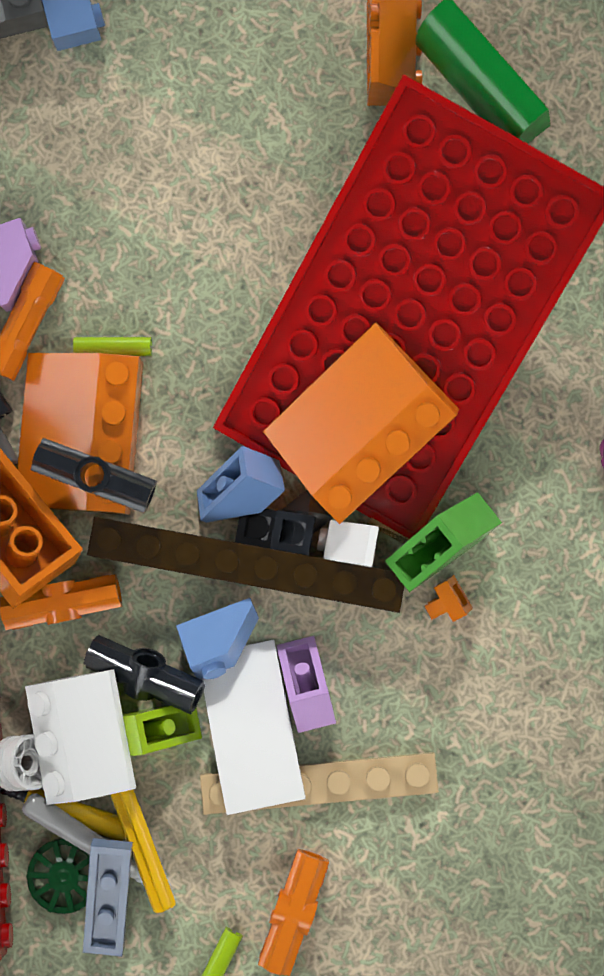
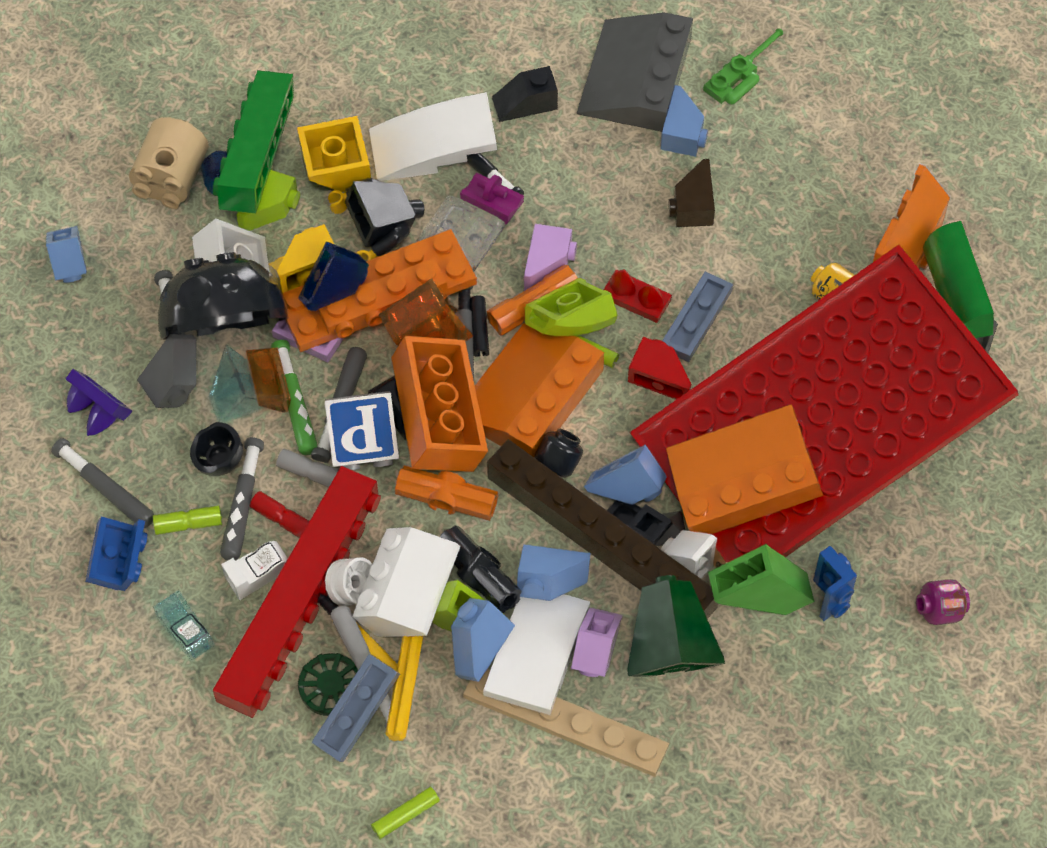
camera: 30 degrees right, 25 degrees down
(70, 467) = (537, 417): black piece -> none
(72, 322) = (572, 310): none -> lime slope
(129, 99) = (694, 198): none -> dark brown slope
(131, 254) = (637, 295): none -> red tile
(165, 500) = (560, 452): none -> black head
(189, 759) = (478, 637): none -> medium blue slope
(203, 335) = (658, 369): none -> red slope
(209, 247) = (697, 315): none -> sand blue plate
(293, 912) = (490, 799): orange piece -> none
(336, 131) = (828, 278): none -> yellow head
(383, 648) = (671, 631): none -> dark green slope
(449, 600) = (741, 637): orange tile -> none
(514, 488) = (836, 580): none -> blue bracket

